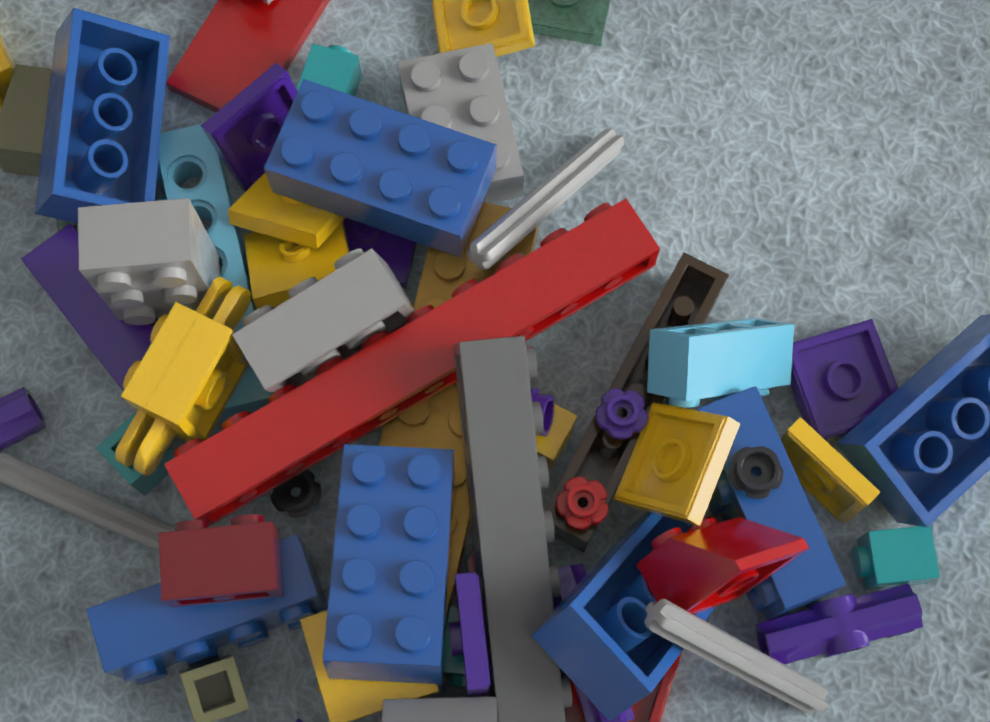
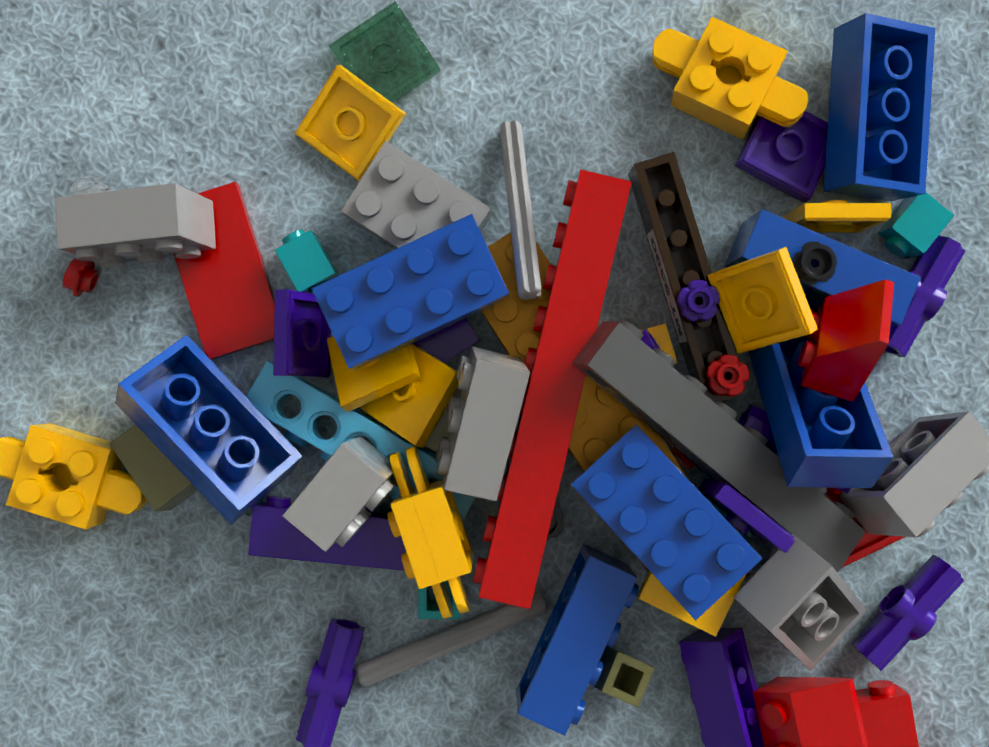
camera: 40 degrees left, 15 degrees up
(220, 562) = (571, 619): dark red brick -> none
(719, 359) = (719, 210): medium azure brick -> none
(734, 656) = (896, 380): light grey axle -> none
(821, 273) = (723, 94): none -> yellow brick

